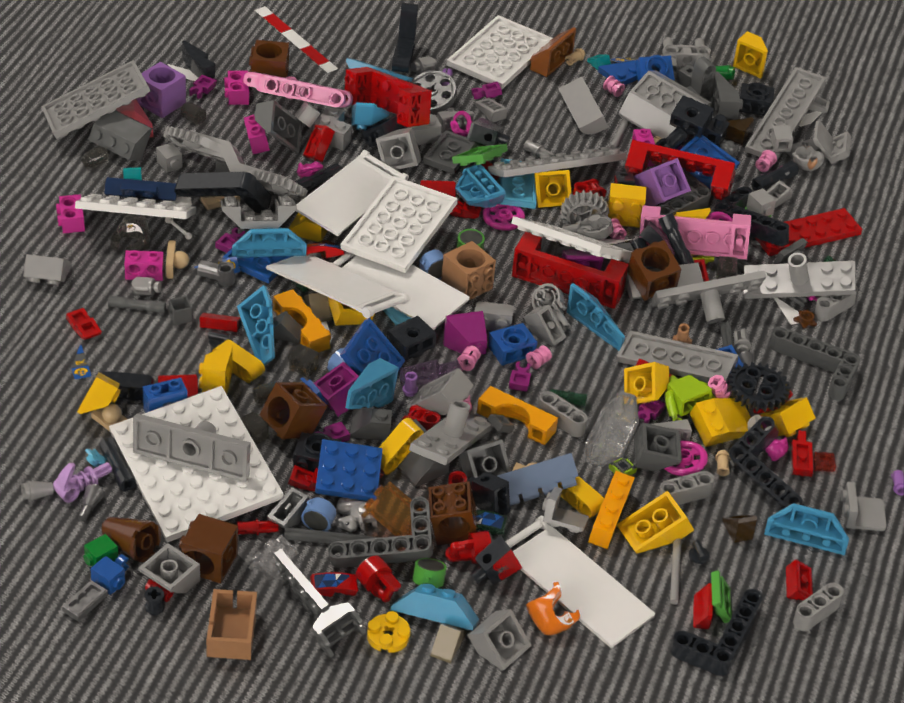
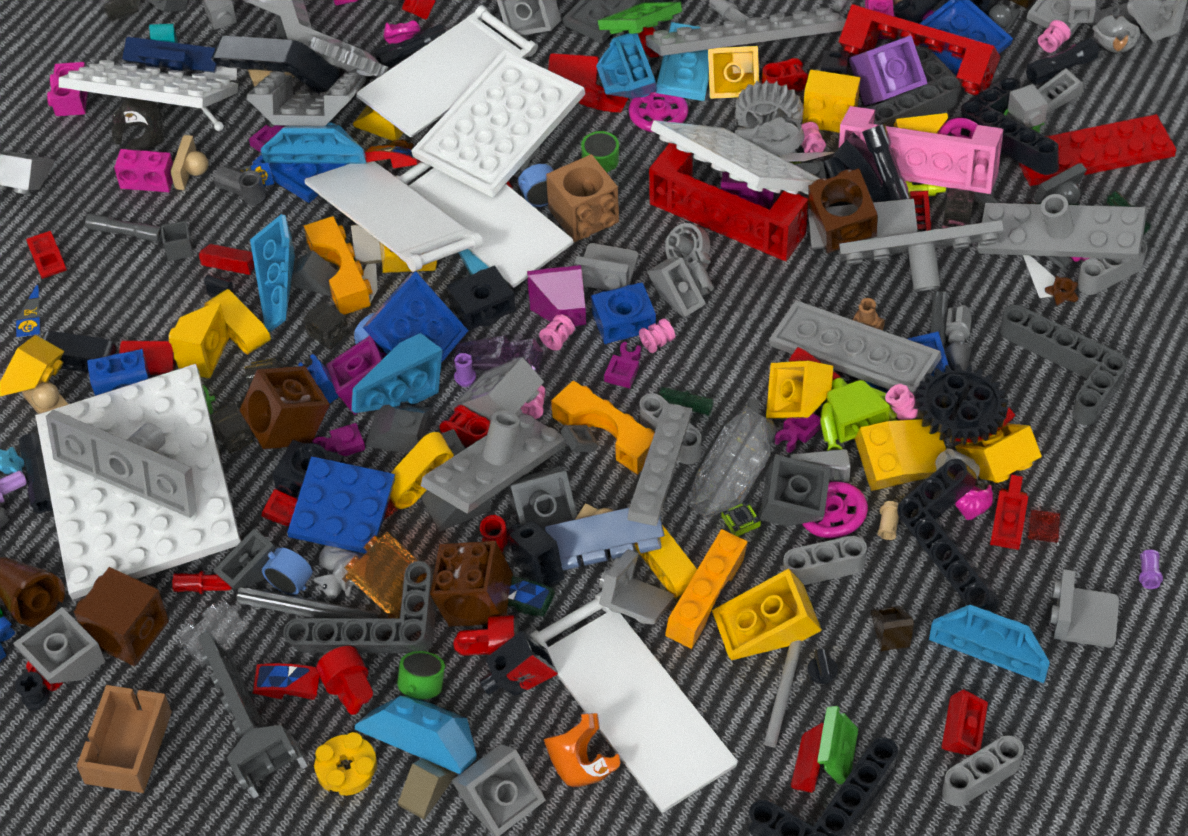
camera: 15 degrees right, 10 degrees up
(145, 286) = (141, 201): light grey arm -> none
(567, 430) = (660, 464): none -> light grey plate
(592, 314) = (744, 267): dark azure wedge -> none

